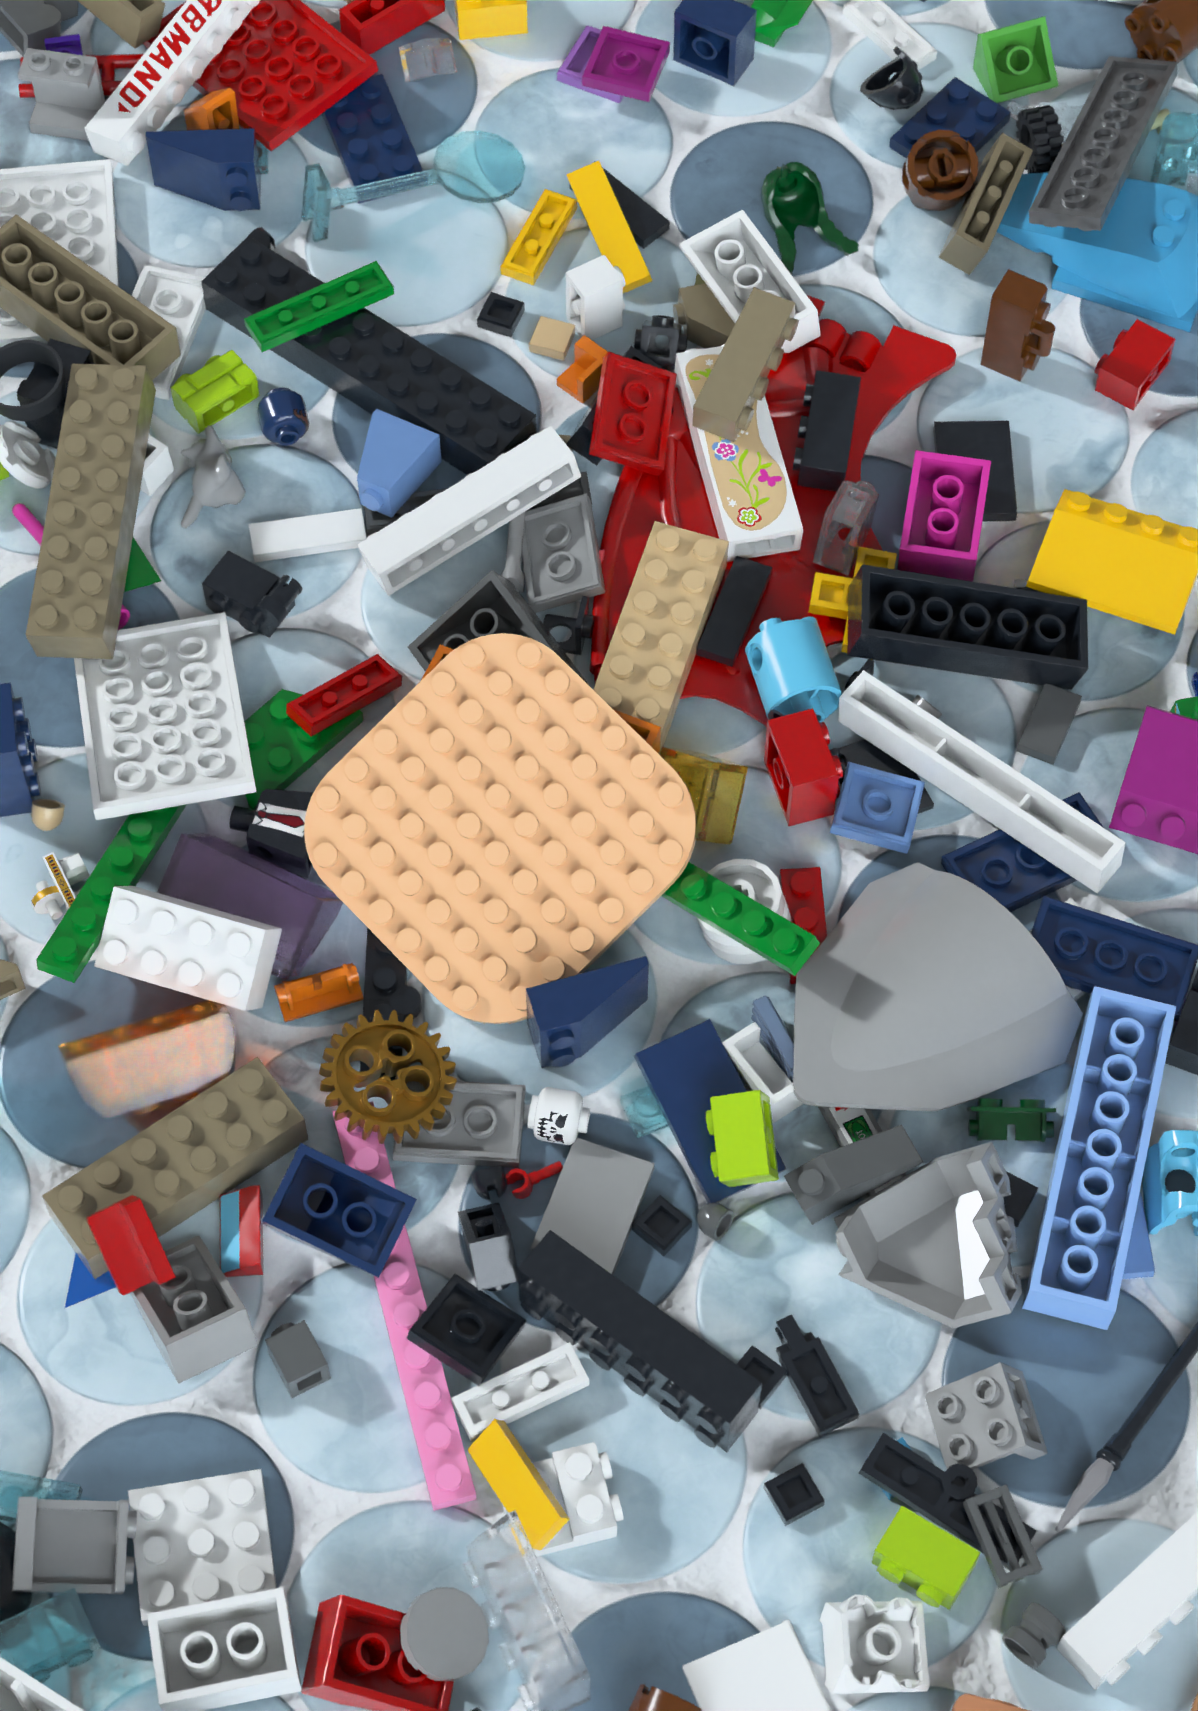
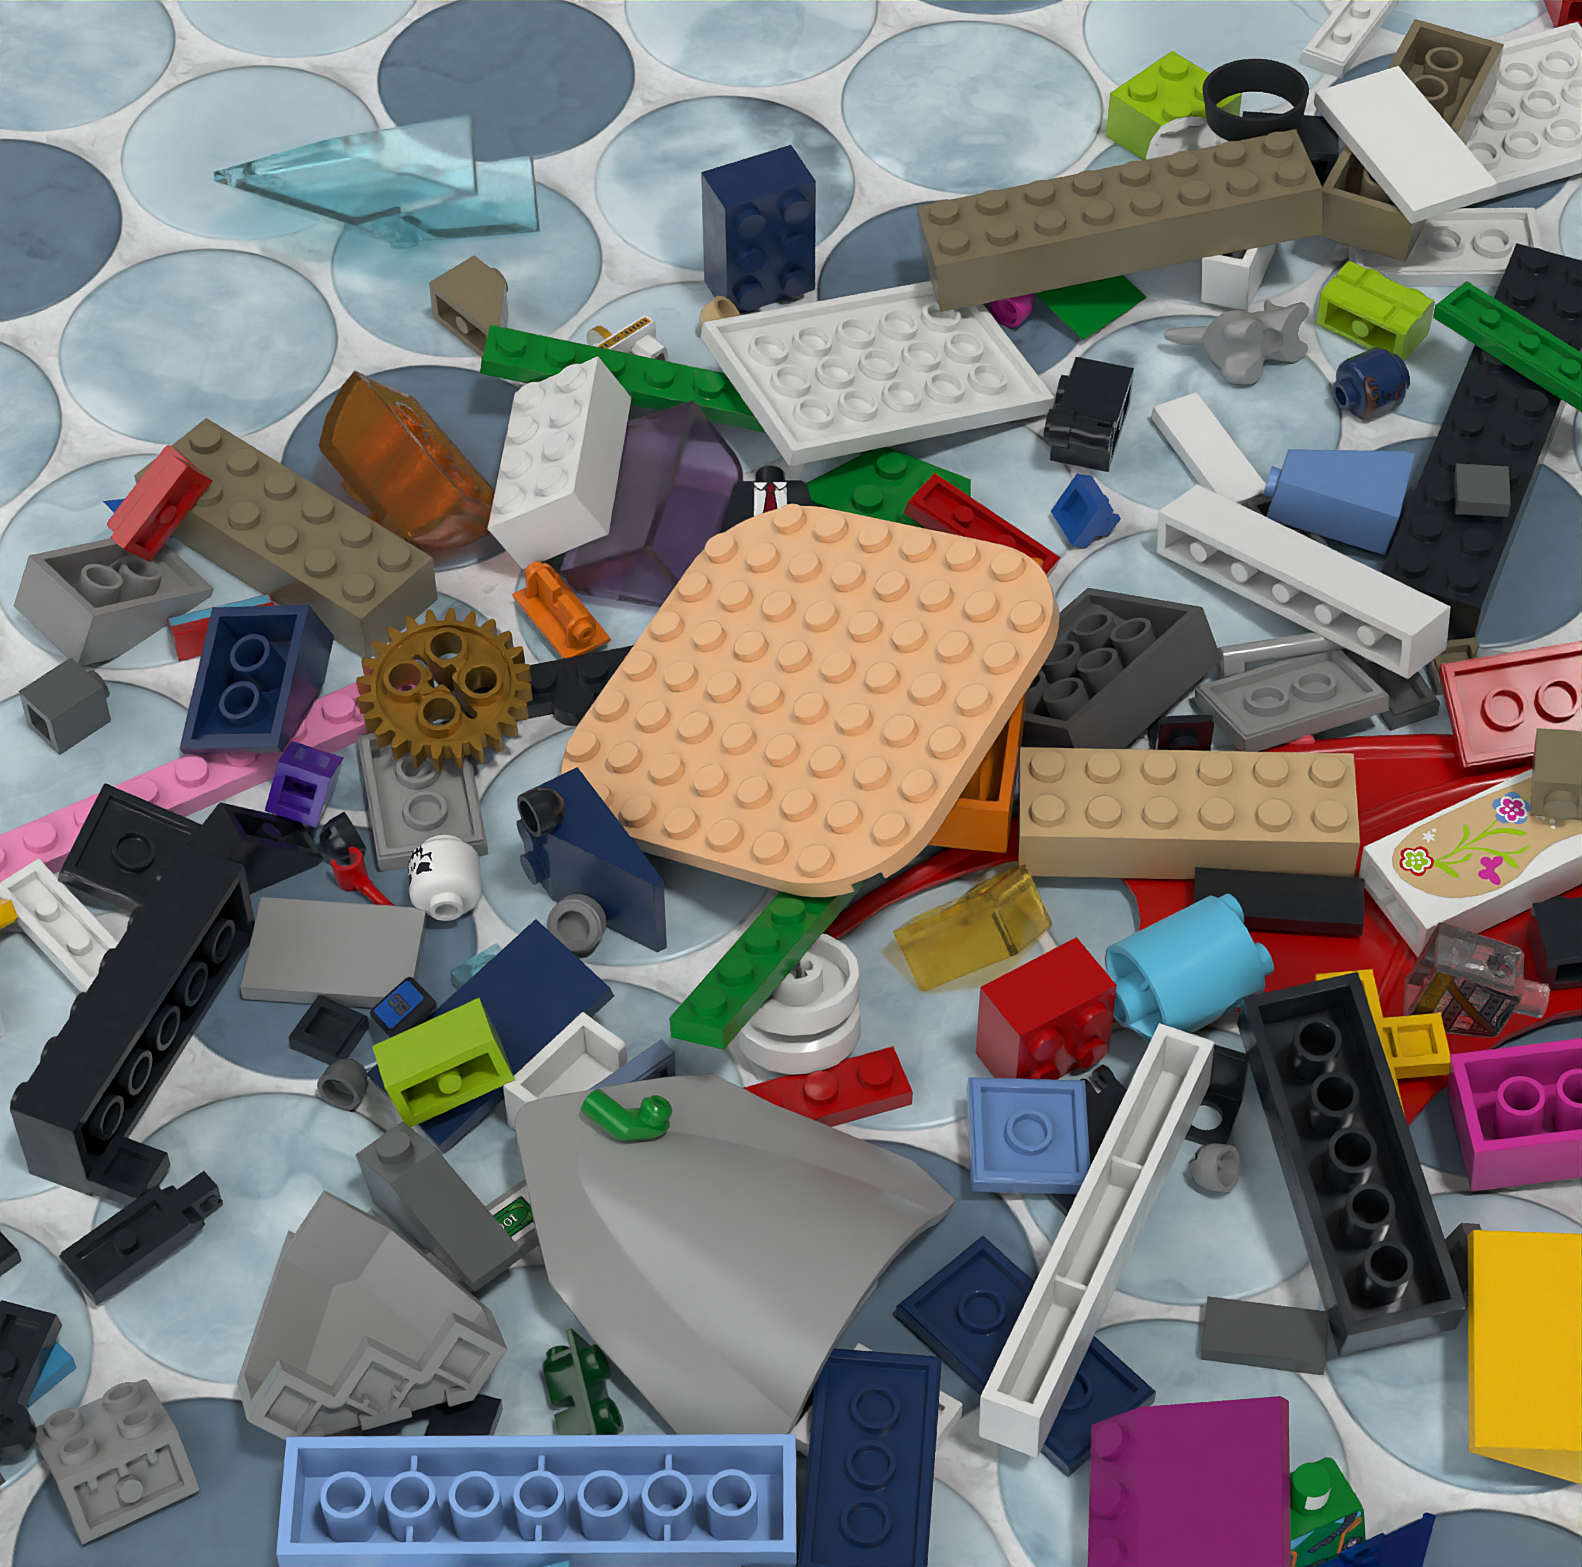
camera: 75 degrees right, 10 degrees down
(103, 305) = (1405, 144): none -> white tile
(342, 626) = (1084, 512): none -> blue tile
(441, 1193) = (303, 783): none -> dark purple brick
(443, 376) = (1482, 490): none -> dark grey tile
(572, 1015) = (541, 810): none -> black hinge
(621, 1039) = (577, 922): none -> light grey tile
(672, 1164) = (403, 1008): none -> slope
(835, 1027) = (631, 1123): none -> green arm

